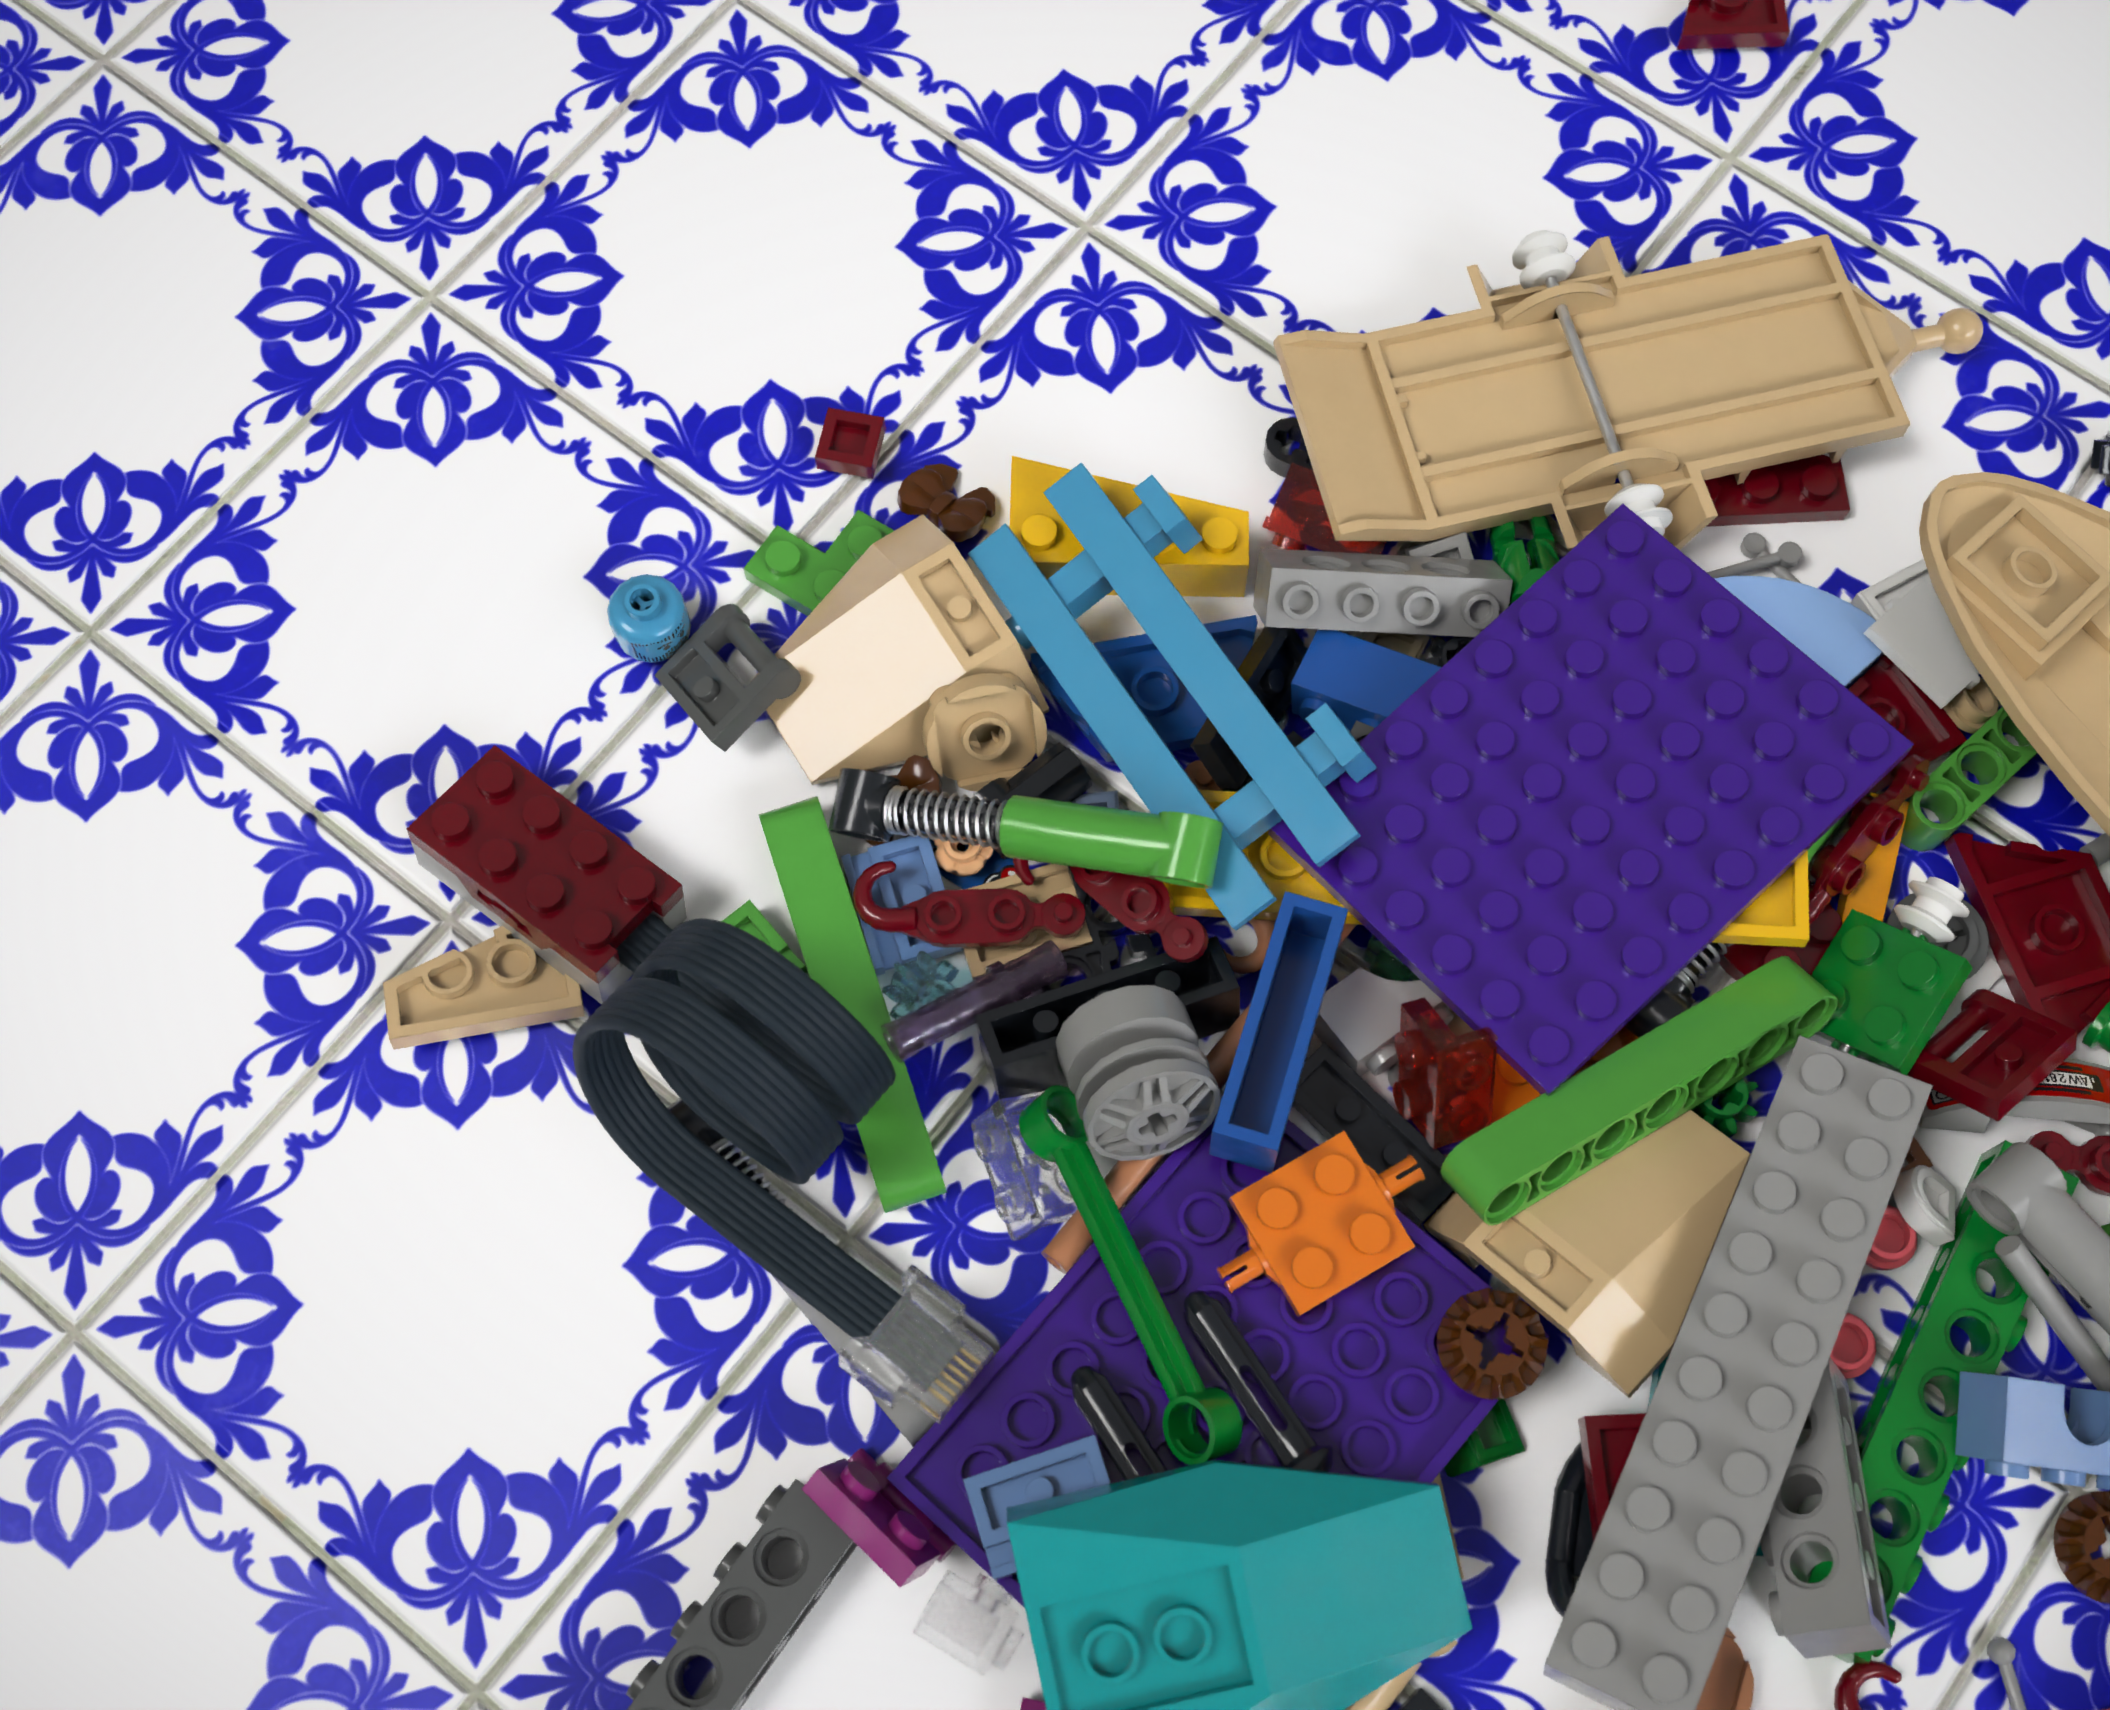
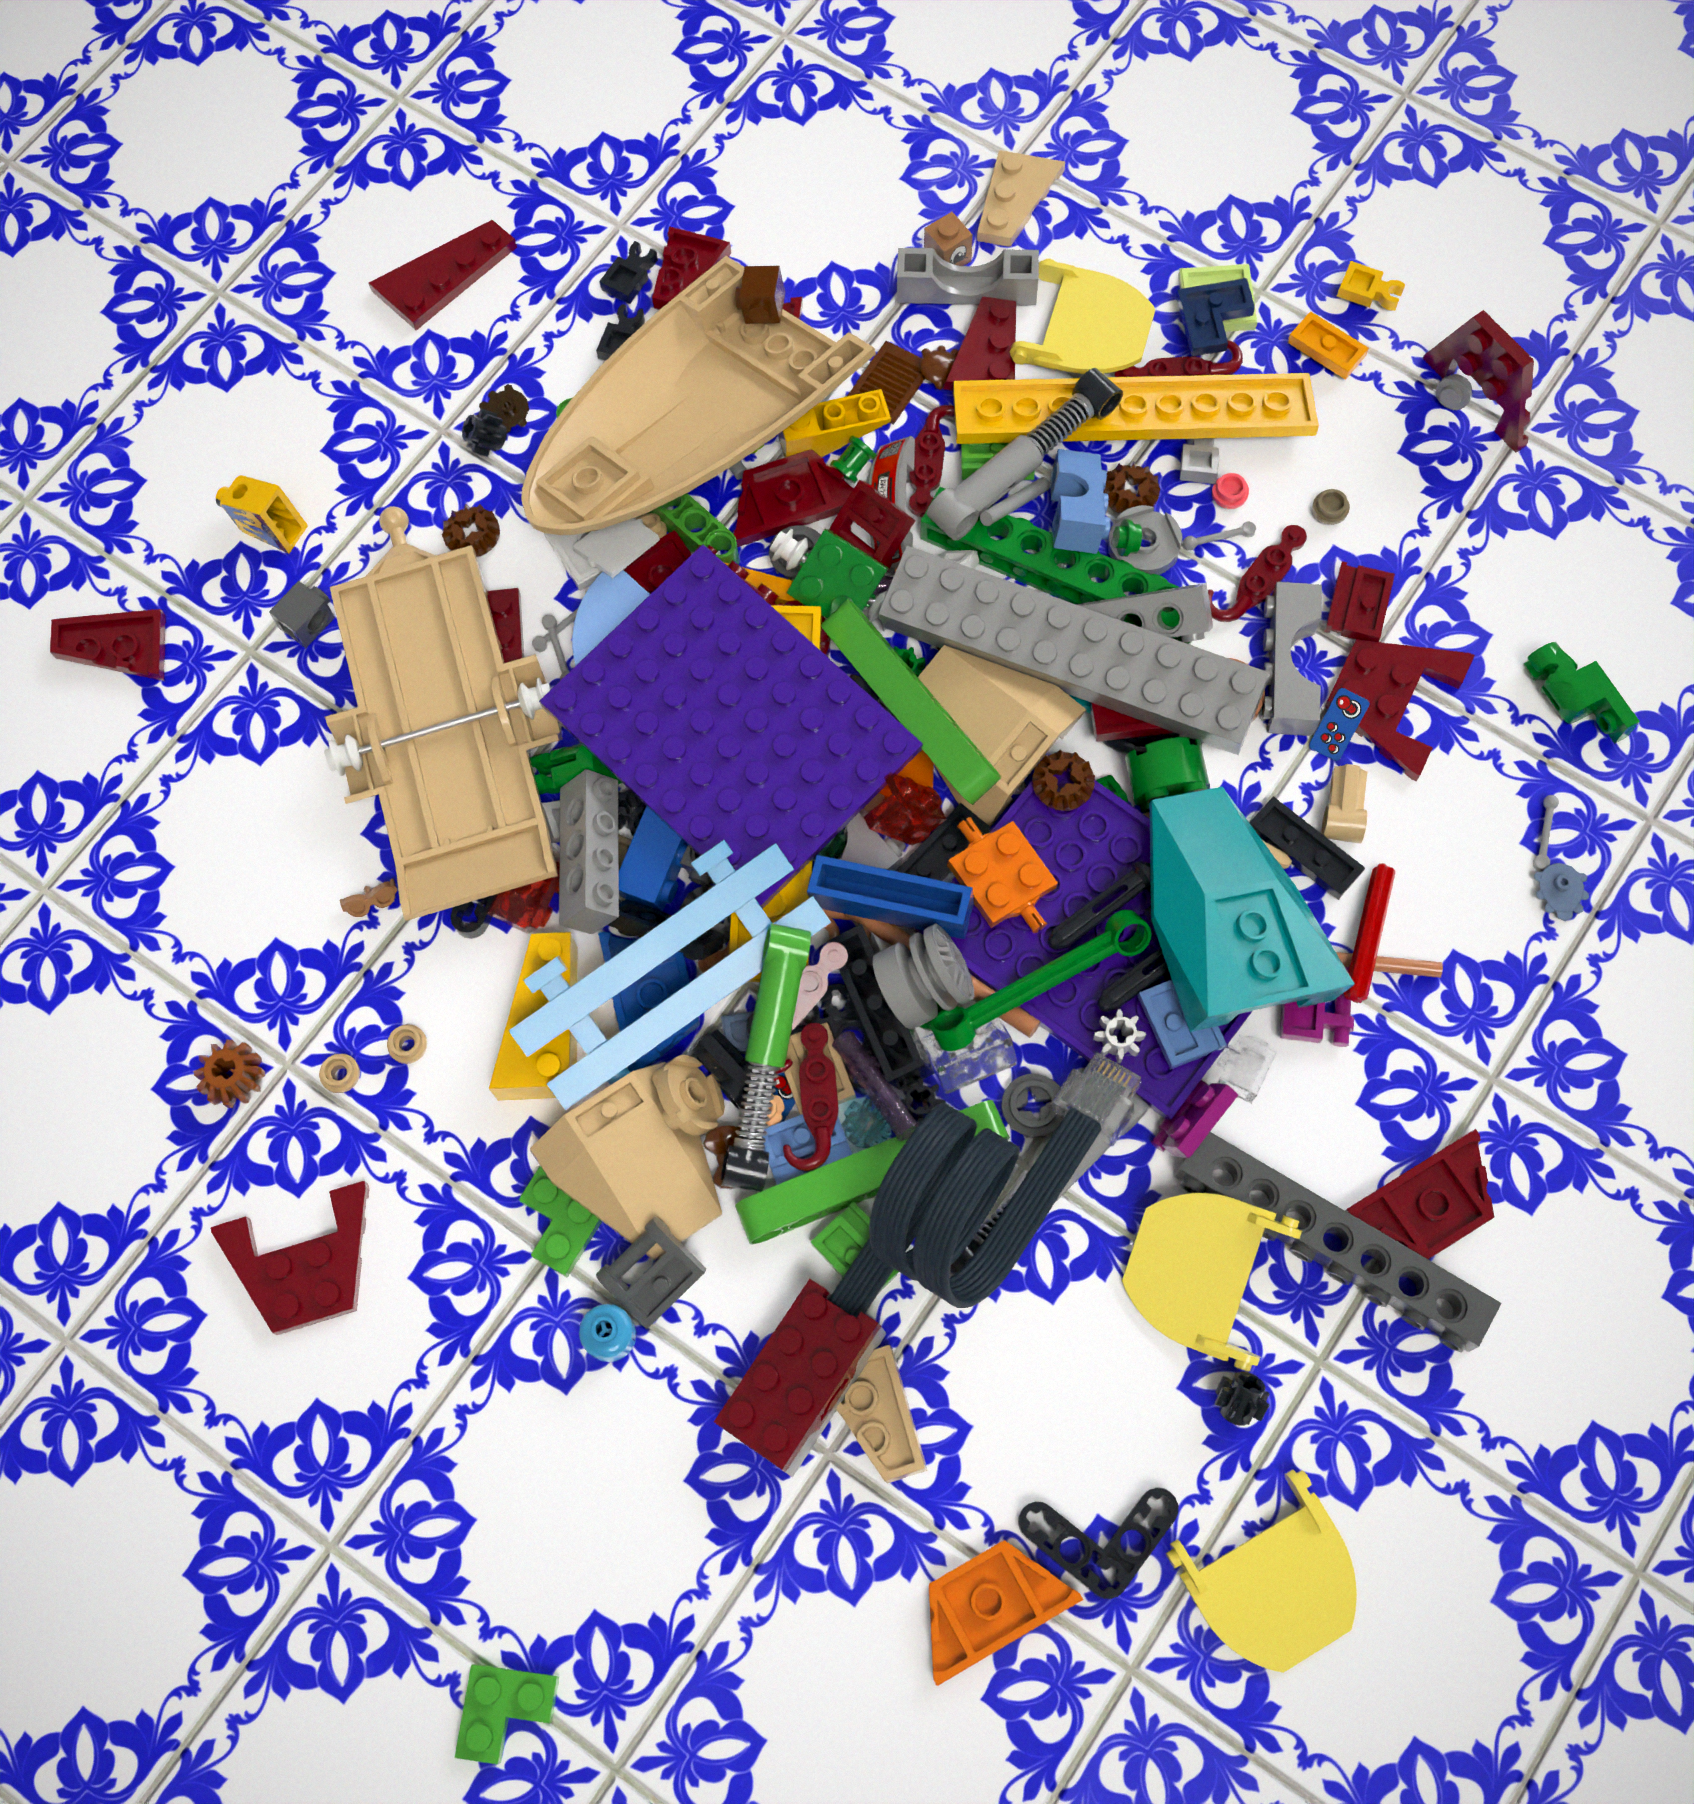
camera: 90 degrees left, 0 degrees up
(137, 1574) = (1279, 1590): none -> light yellow piece
(193, 1131) = (990, 1606): none -> orange wing
(202, 492) = (492, 1699): none -> bright green plate
(233, 1311) = (1112, 1554): none -> black beam
(423, 1545) = (1242, 1398): none -> black gear
(641, 1493) = (1195, 1268): none -> light yellow piece
(779, 257) = (306, 1279): none -> dark red wing
(850, 443) = (465, 1210): dark red plate -> none
(930, 494) = (521, 1132): reddish brown piece -> none
(947, 1093) = (920, 1093): none -> black gear
(955, 1233) = (1016, 1097): none -> dark grey gear
(1009, 1380) = (1127, 1029): none -> white gear
(1064, 271) = (332, 1065): none -> tan plate
(1070, 149) = (219, 1063): none -> dark orange gear
(1102, 354) = (399, 1036): none -> tan plate
(1317, 304) = (380, 896): none -> medium nougat piece
(1512, 1541) = (1166, 770): none -> green brick
(1788, 208) = (302, 613): none -> dark grey brick
(1928, 450) = (482, 540): none -> reddish brown gear
(1967, 135) = (262, 512): none -> yellow torso
(1992, 1516) = (1127, 538): none -> green plate
(2031, 1580) = (1155, 526): none -> light grey plate

